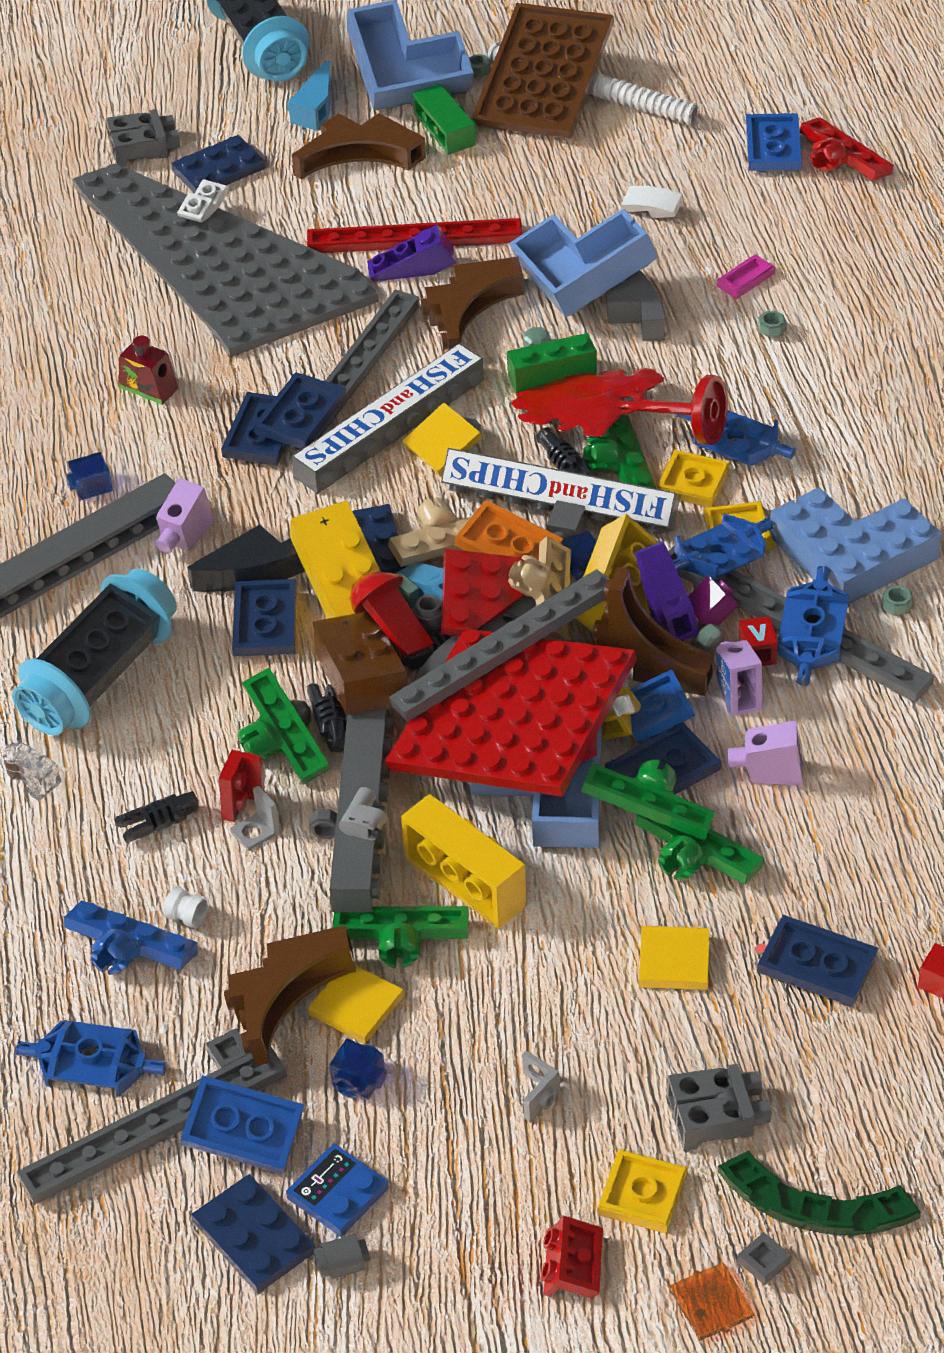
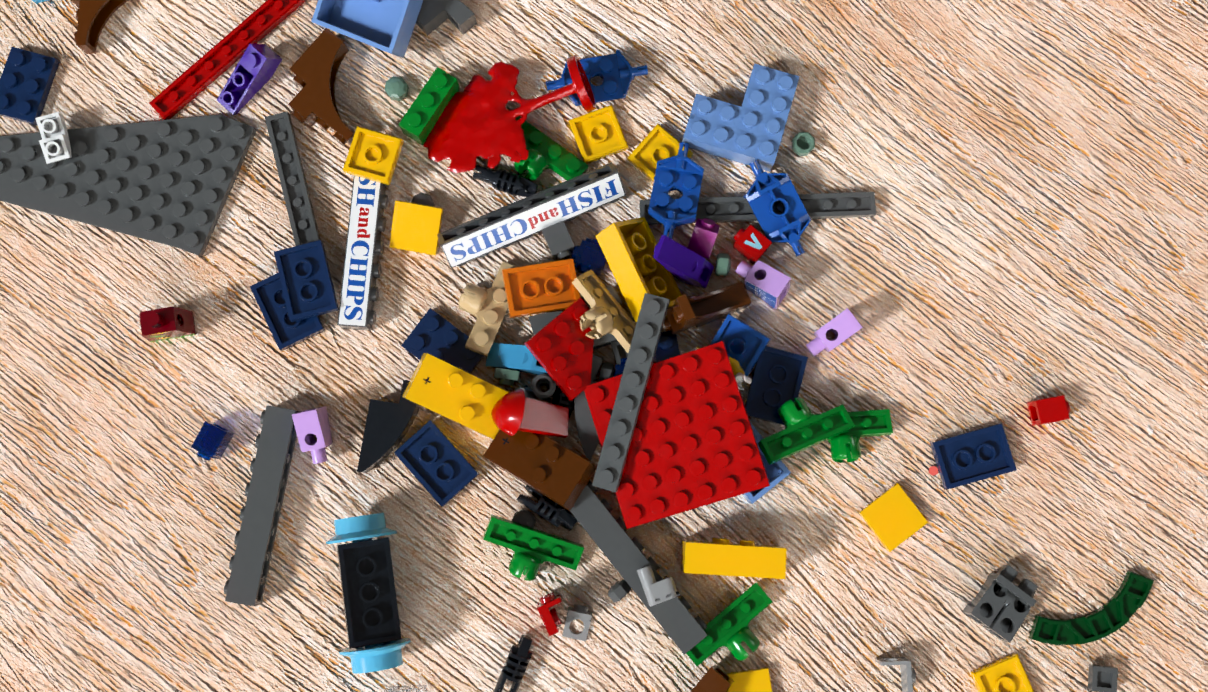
camera: 45 degrees left, 35 degrees up
(459, 359) = (373, 155): none -> yellow tile

